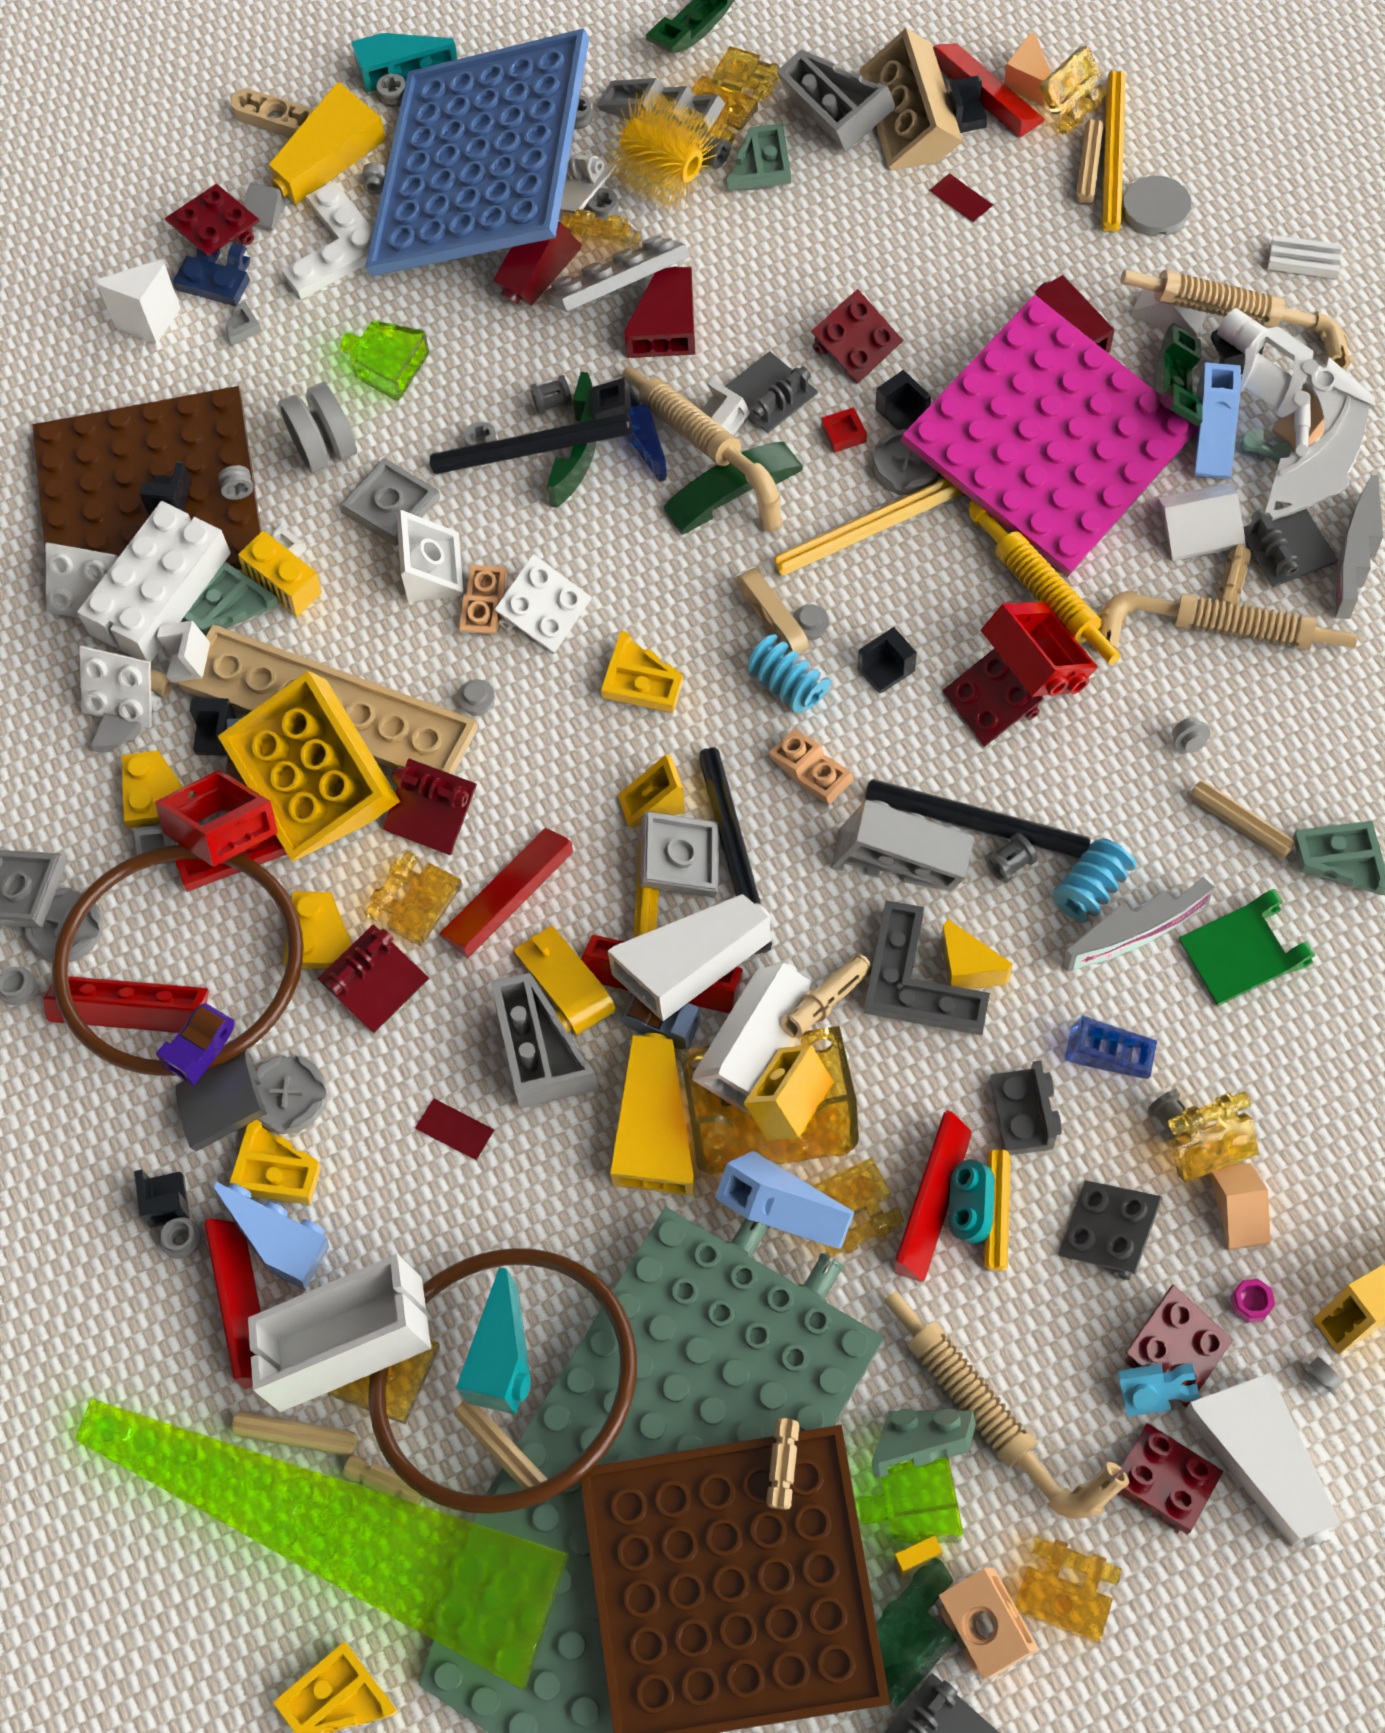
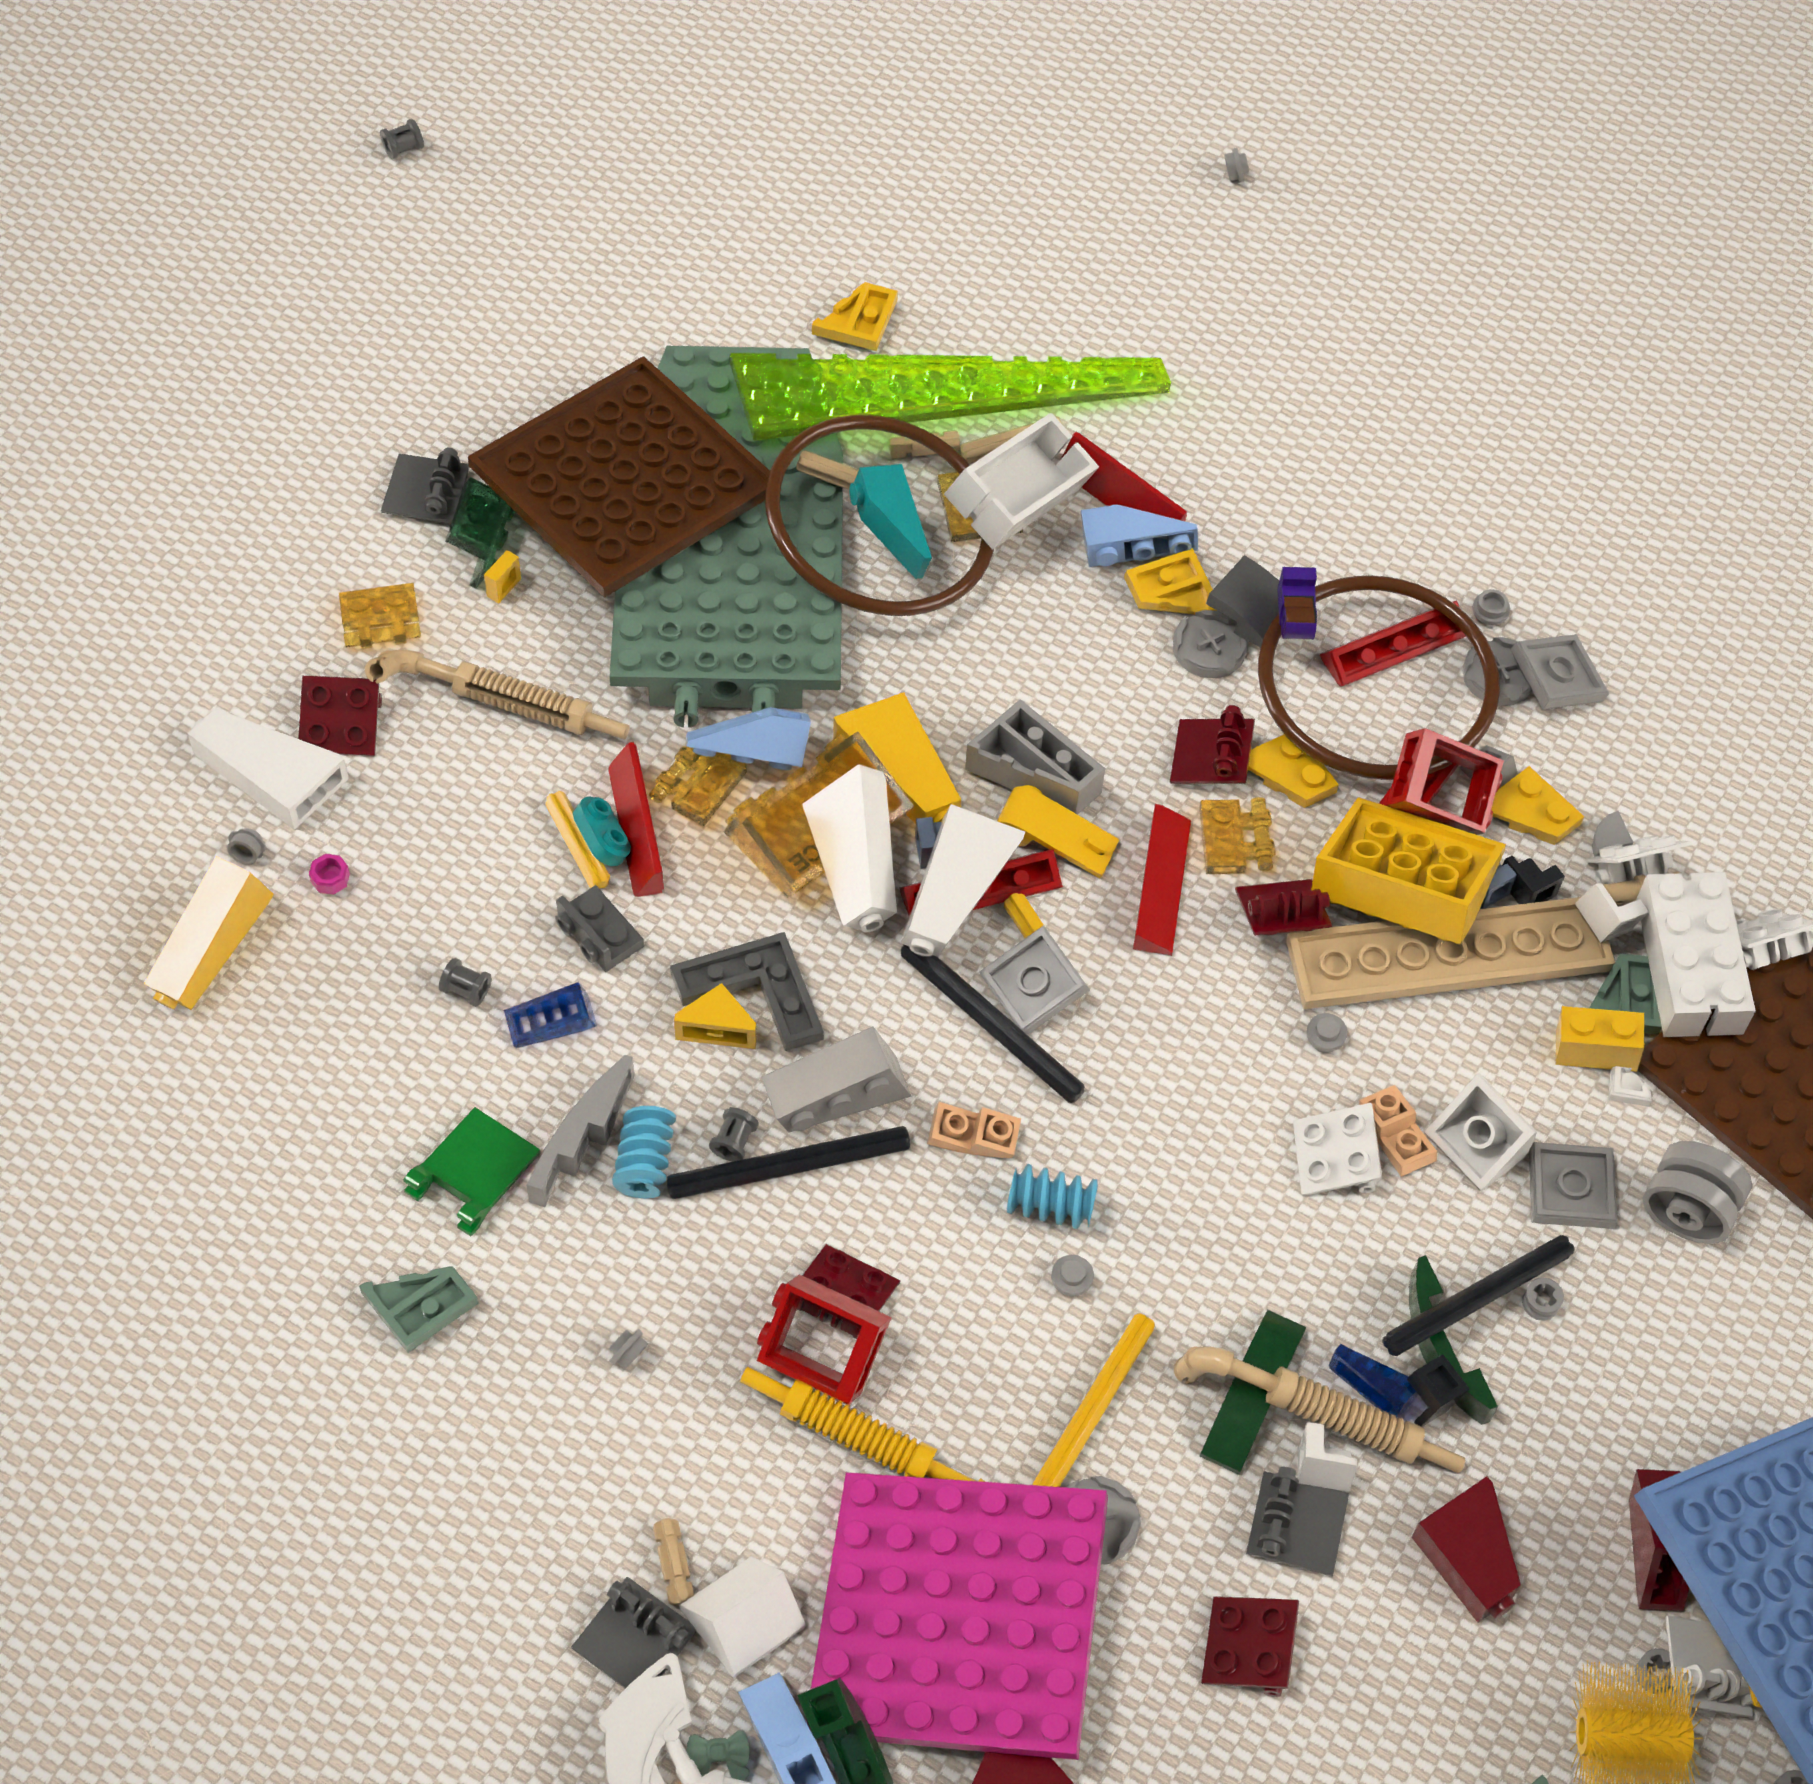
camera: 140 degrees right, 5 degrees down
(161, 1197) = (1239, 524): black panel -> none
(169, 489) = (1769, 1052): black panel -> none
(172, 1230) = (1203, 503): light grey plate -> none
(235, 482) = (1719, 1093): light grey bush -> none
(386, 356) = (1712, 1330): clear neon green torso -> none
(454, 1129) = (1059, 689): dark red sticker -> none
(542, 403) = (1514, 1382): dark grey bush -> none
(592, 228) = (1622, 1601): clear yellow plate -> none
(623, 270) = (1560, 1561): light grey plate -> none
(640, 677) = (1191, 1129): yellow wing -> none
(653, 791) = (1093, 1024): yellow slope -> none
(772, 611) = (1115, 1259): tan beam -> none
(782, 1463) = (631, 539): tan axle -> none
(788, 1092) = (797, 806): yellow brick -> none
(817, 1003) = (820, 917): tan pin -> none
(844, 429) = (1187, 1522): red tile -> none
(886, 660) = (969, 1272): black panel -> none
(901, 400) = (1144, 1584): black panel -> none
(915, 1503) = (523, 608): clear neon green torso -> none
(922, 1437) = (543, 638): sand green wing -> none
(1011, 1638) = (426, 558): light nougat brick -> none
(1110, 1227) = (474, 869): dark grey hinge -> none
(1149, 1389) = (383, 760): medium azure plate -> none
(1178, 1336) = (376, 810): hinge -> none
(1217, 1145) = (416, 975): clear yellow plate -> none
(1228, 618) = (664, 1499): tan piece -> none
(1242, 819) = (536, 1293): tan axle -> none
(1242, 1206) = (376, 947): light nougat slope -> none
(1359, 544) = (558, 1679): light grey slope -> none

